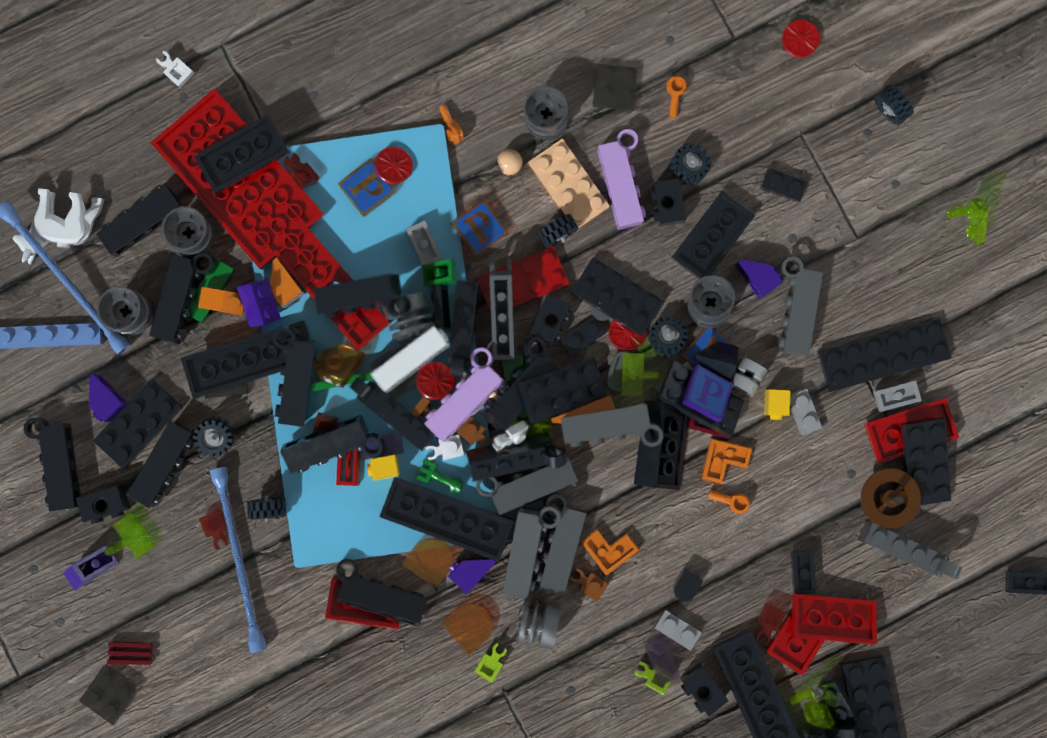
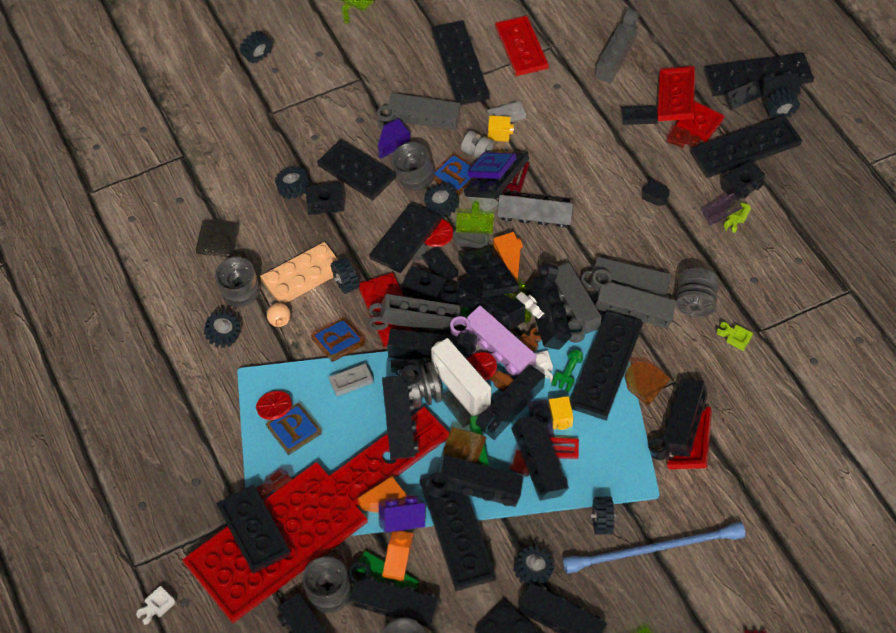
camera: 90 degrees left, 30 degrees down
(214, 525) = (622, 569): clear red plate -> none
(439, 273) = (379, 356): green slope -> none
(454, 132) = (245, 359): orange plate -> none
(469, 571) = (654, 348): dark purple slope -> none
(469, 626) = (704, 354): clear orange tile -> none
(489, 102) = (222, 329): none -> black wheel
(591, 585) = (660, 260): dark orange plate -> none
(606, 555) = (632, 247): orange tile -> none
(608, 424) = (519, 229): dark grey hinge -> none
(620, 182) = (303, 232): lavender hinge -> none
(676, 87) = (224, 193): orange plate -> none
(677, 629) = (694, 201): light grey plate -> none
(719, 359) = (462, 159): black slope -> none
(719, 455) = (544, 170): orange tile -> none
(738, 502) = (583, 157): orange plate -> none
(783, 185) = (314, 123): black plate -> none
(801, 38) = (191, 109): red wheel -> none
(815, 712) = (753, 103): clear neon green plate -> none
(890, 498) = (576, 56): reddish brown piece -> none
(897, 396) = (493, 53): light grey plate -> none
(927, 458) = (546, 35): black plate -> none

